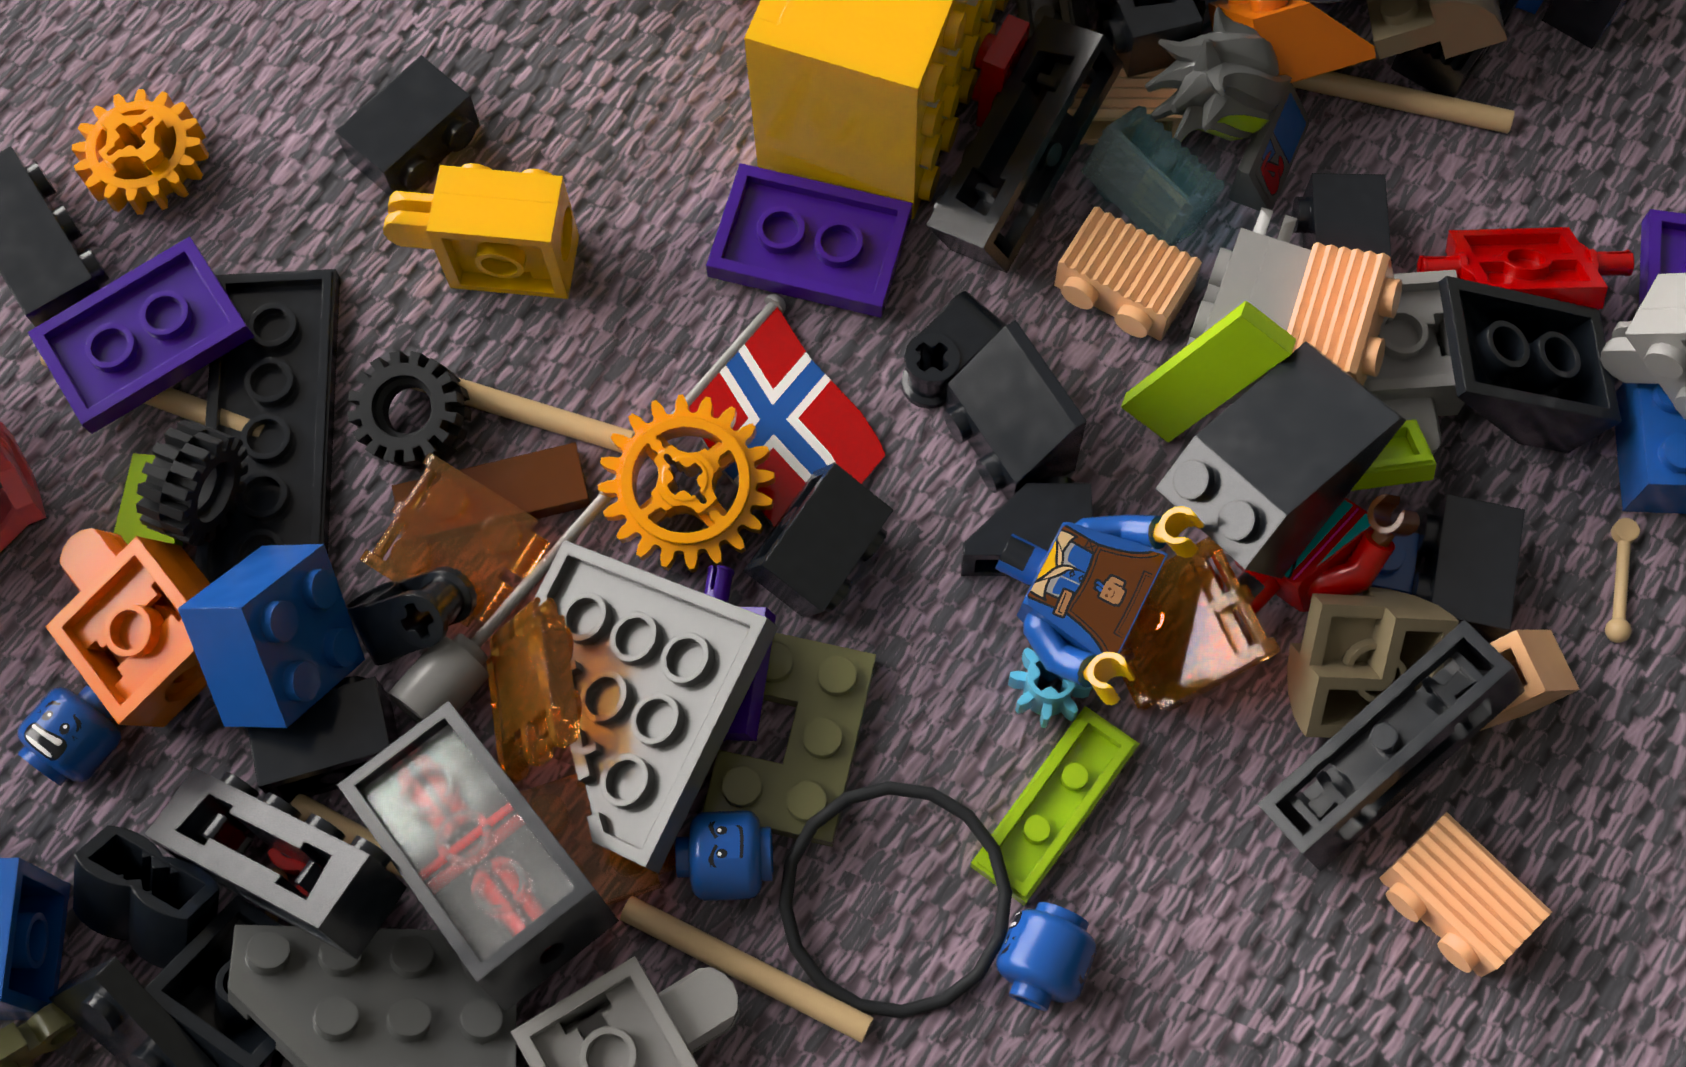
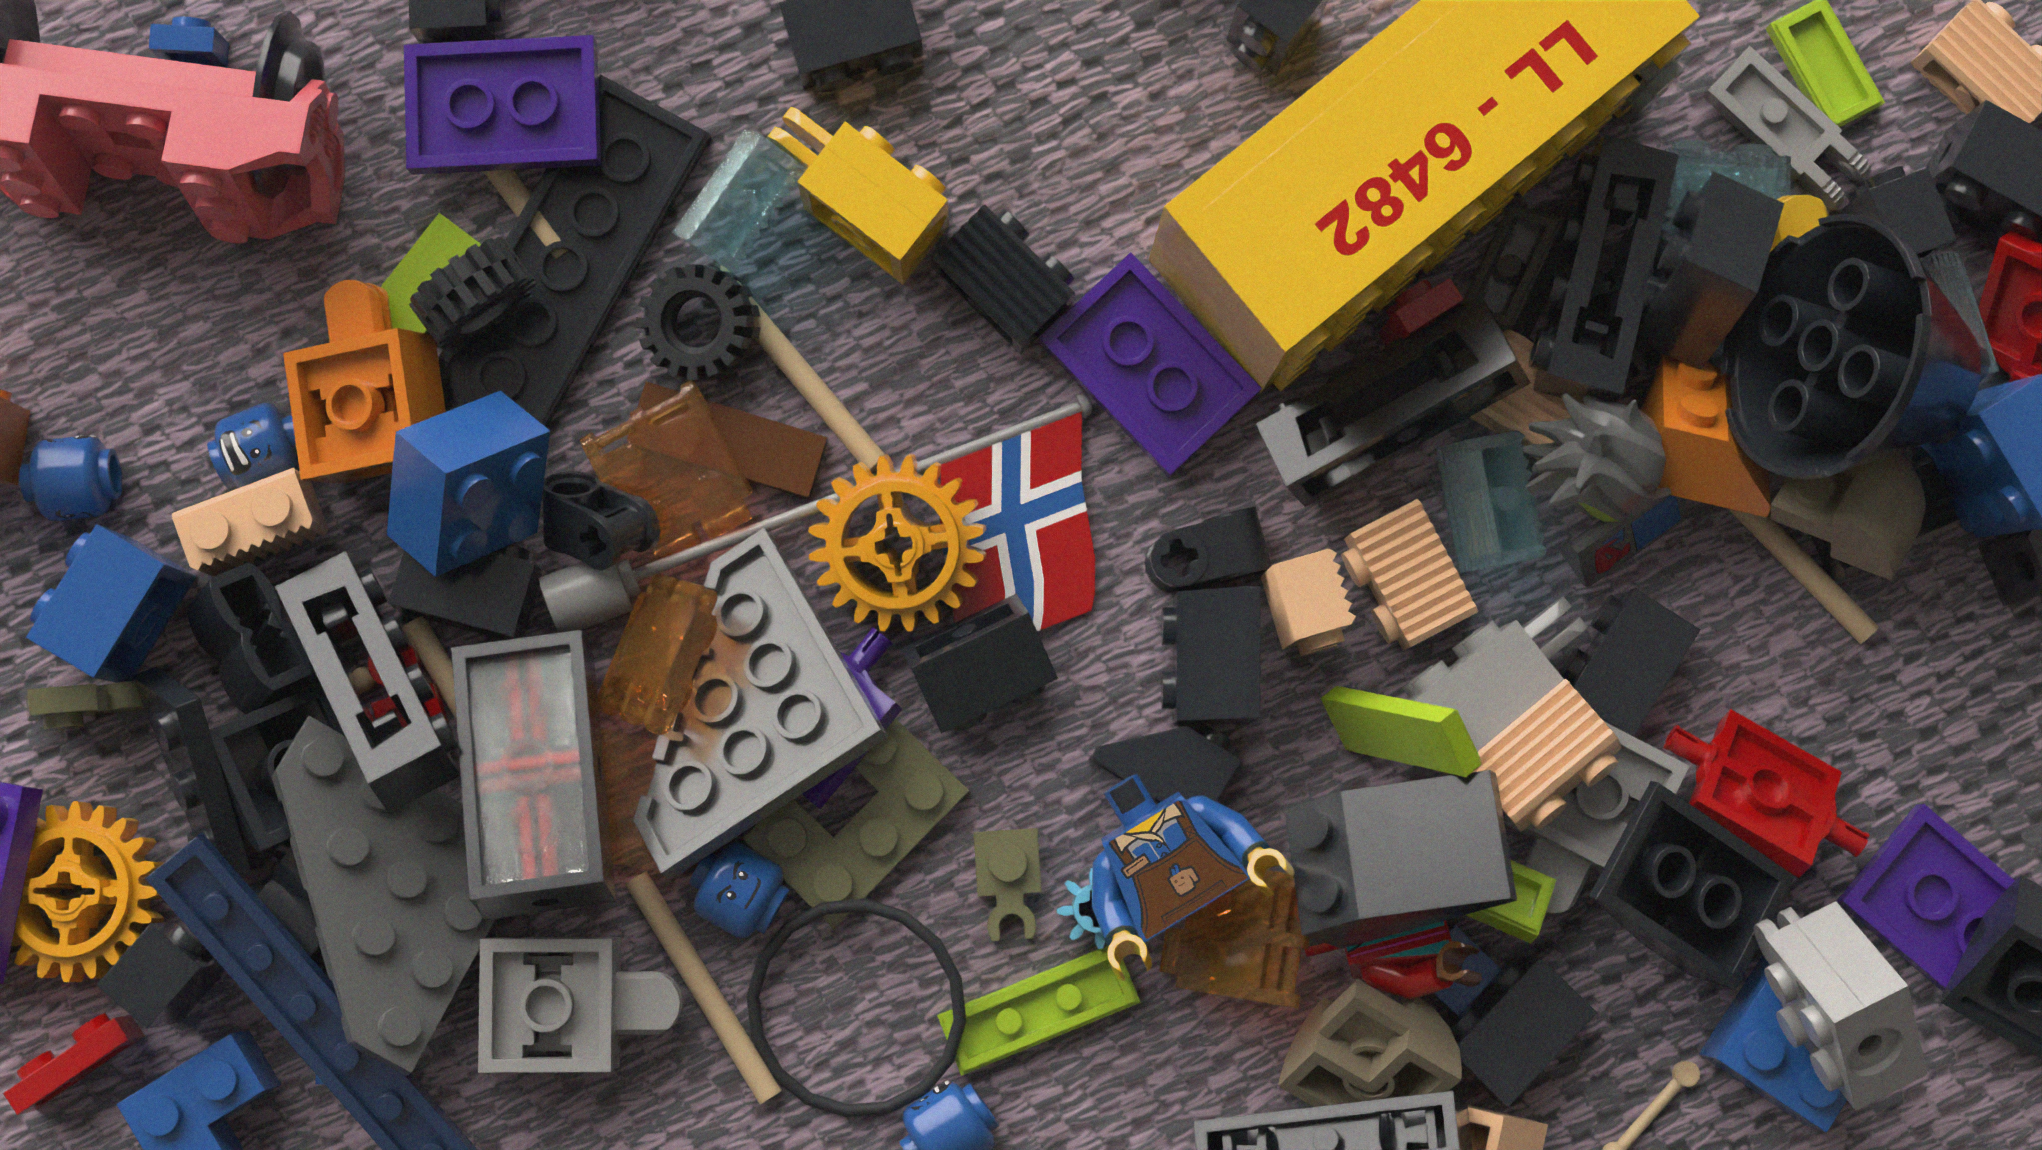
camera: 20 degrees right, 15 degrees up
(96, 788) = (249, 522): none -> light nougat brick
(388, 292) = (739, 200): none -> clear light blue brick
(647, 239) = (1004, 277): none -> black brick
(953, 703) = (1008, 868): none -> olive plate
(1065, 323) = (1308, 602): none -> light nougat brick

